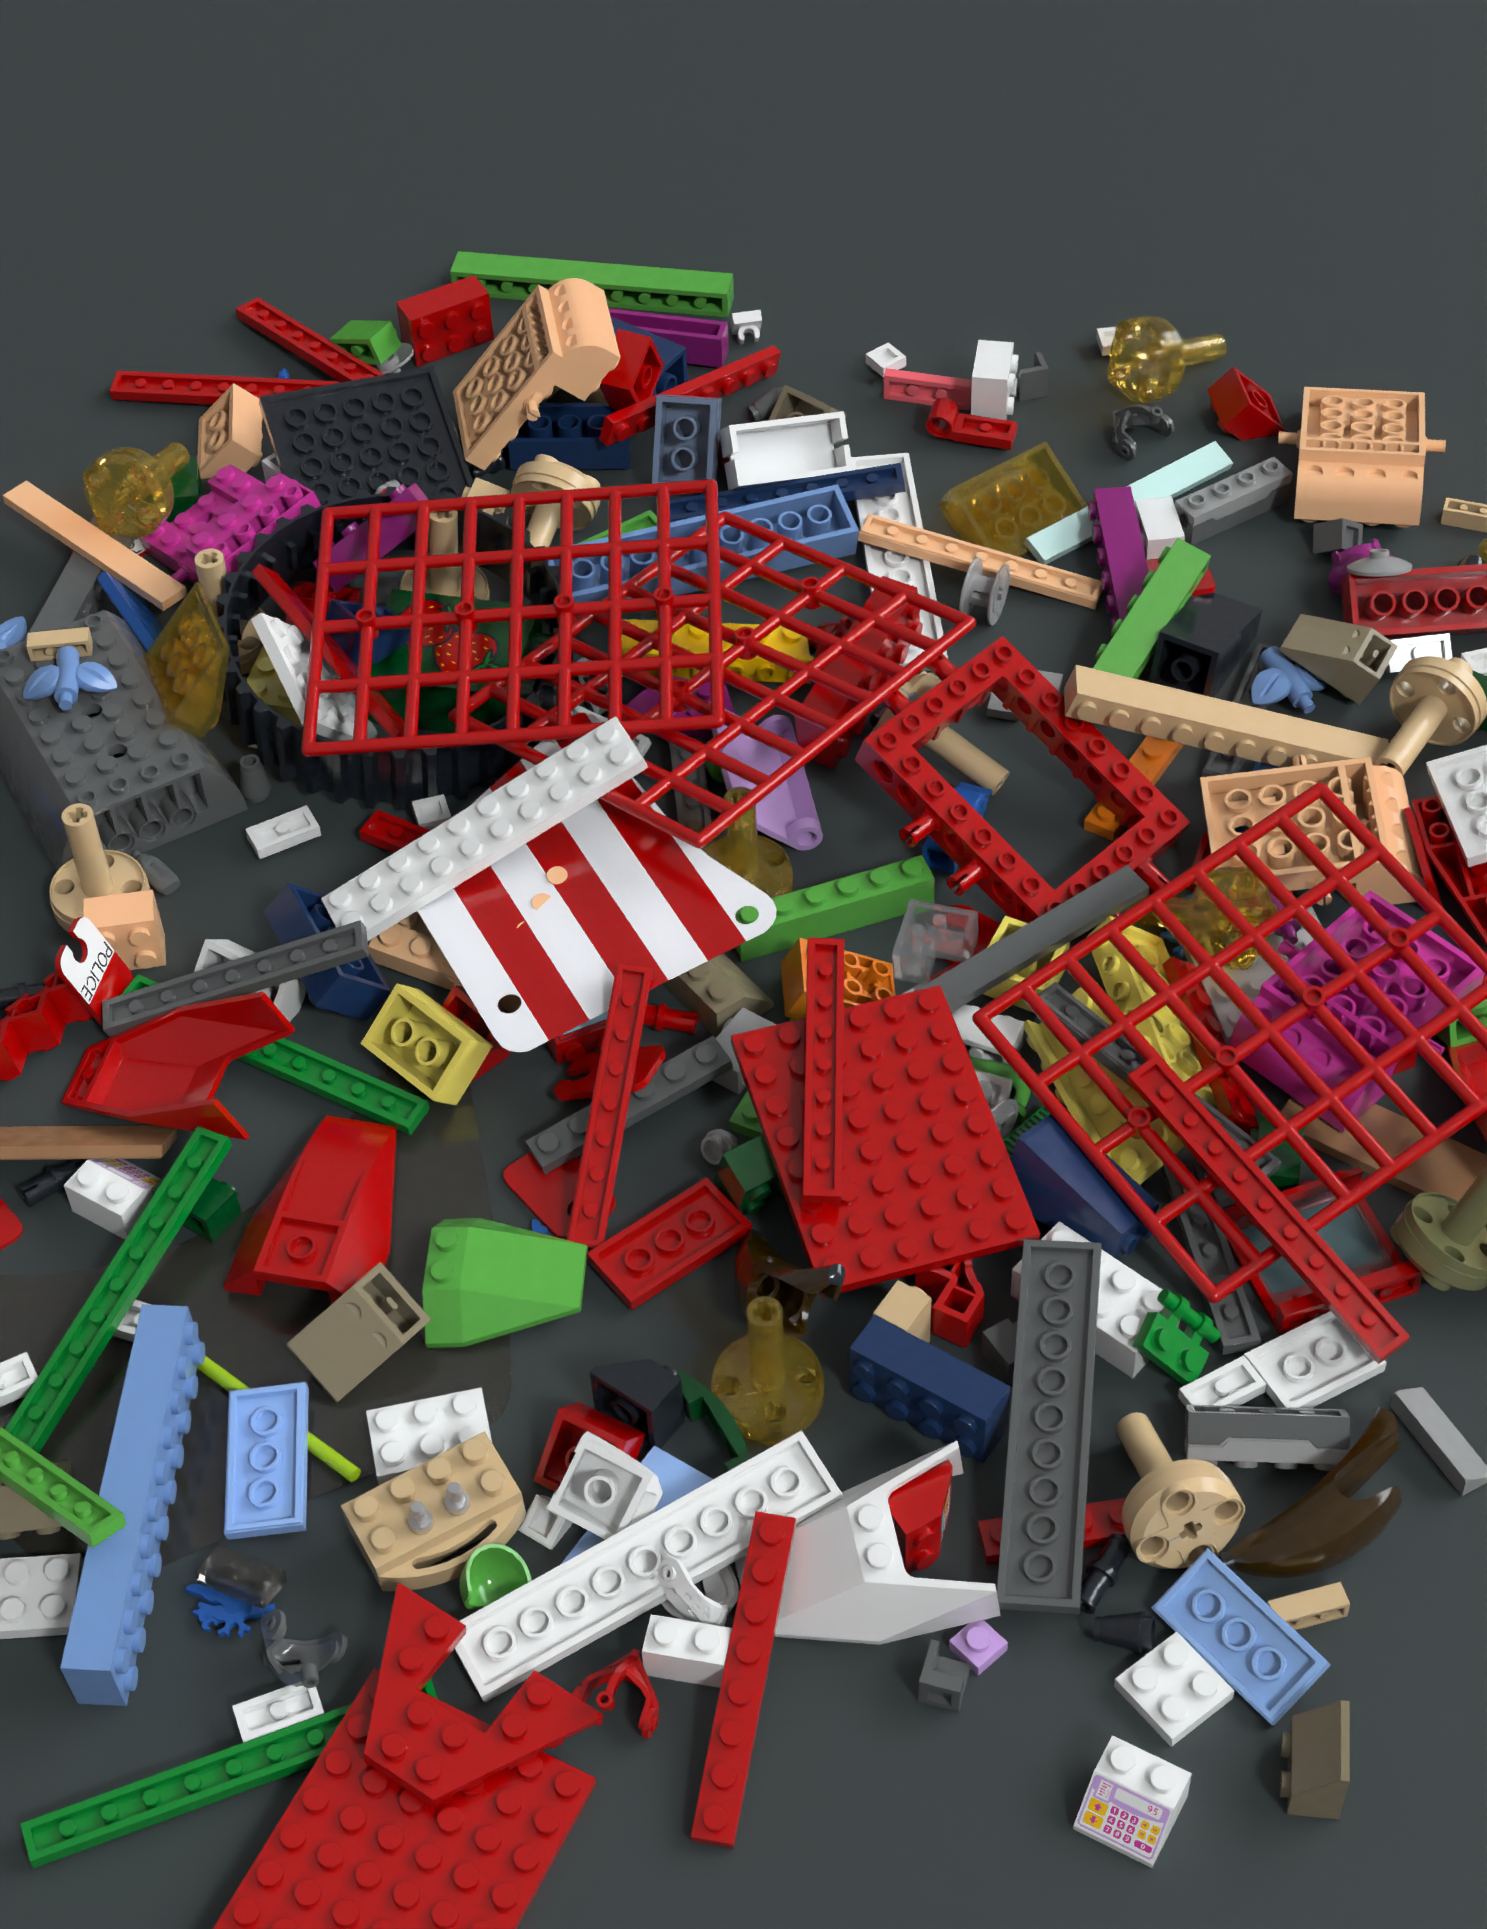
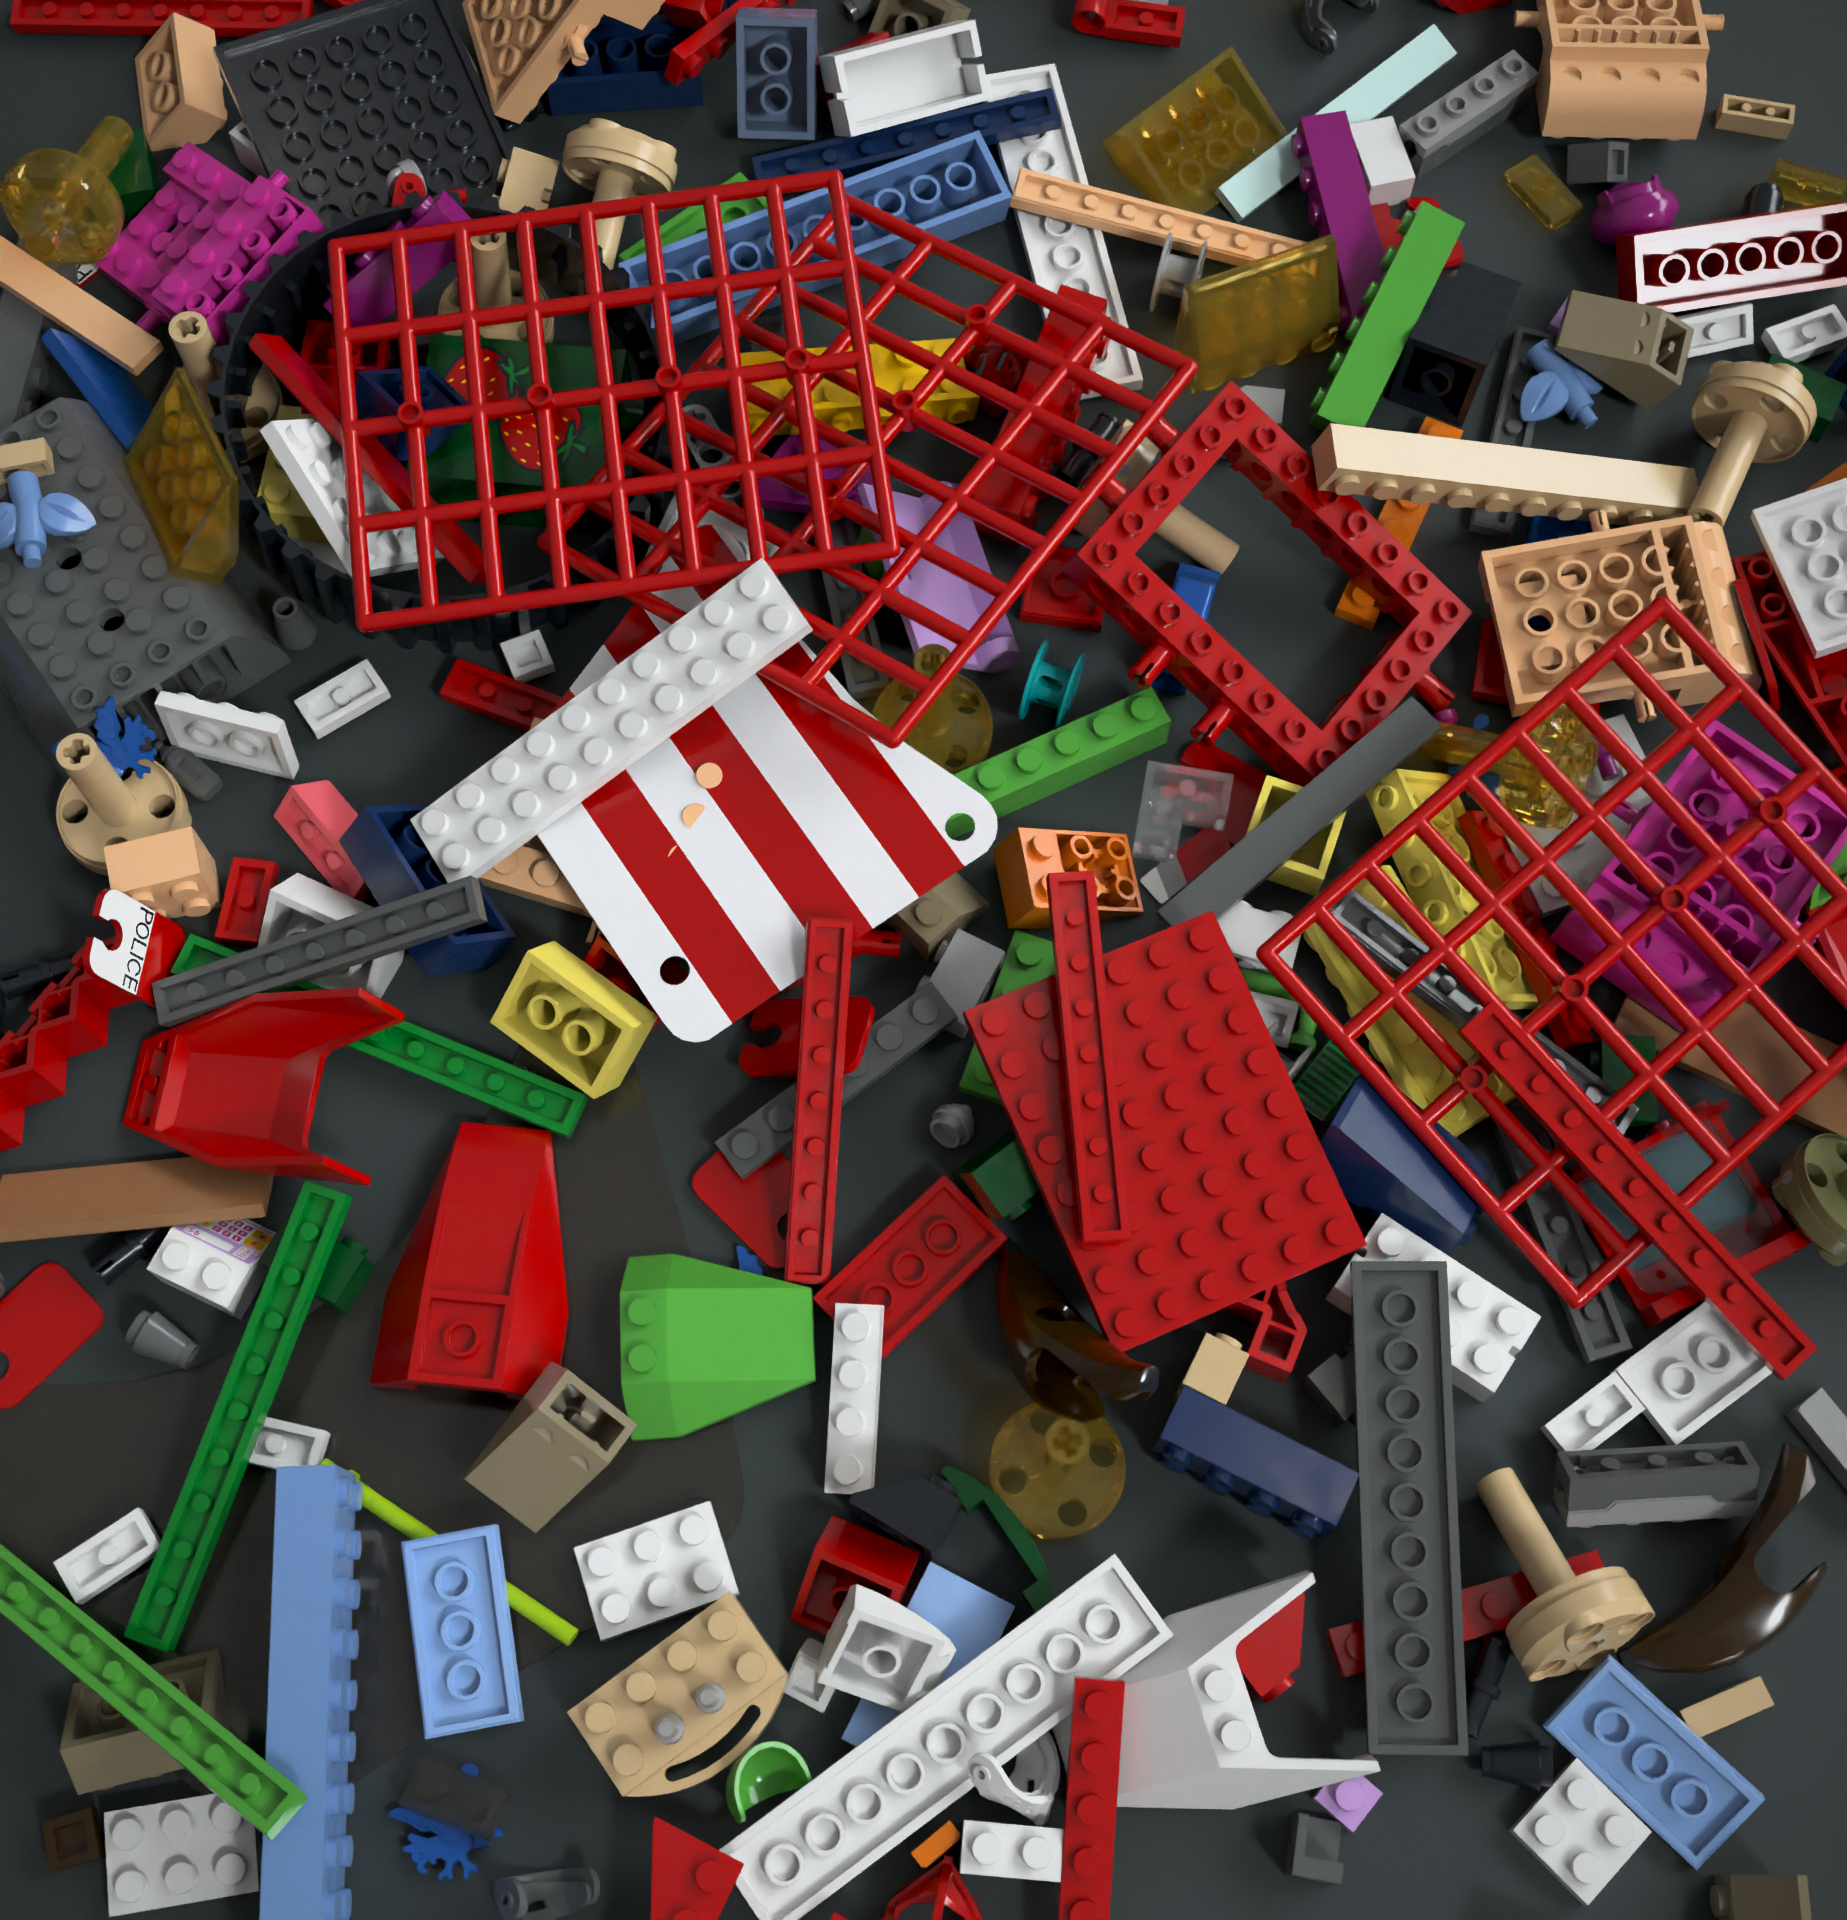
camera: 10 degrees left, 20 degrees up
(64, 1243) = (161, 1340): none -> dark grey cone
(111, 839) = (122, 751): none -> blue piece
(183, 954) = (245, 901): none -> red plate
(191, 843) = (228, 734): none -> white plate
(244, 910) = (316, 820): none -> coral panel
(610, 1315) = (854, 1398): none -> white plate
(625, 1639) = (936, 1845): none -> orange tile
(841, 850) = (1051, 685): none -> teal piece
(861, 799) = (1057, 600): none -> red tile
(1046, 610) = (1260, 314): none -> clear yellow slope
(1168, 1346) = (1535, 1377): green plate -> none
(1292, 557) = (1543, 192): none -> clear yellow plate
(1379, 565) = (1670, 222): light grey dish -> none

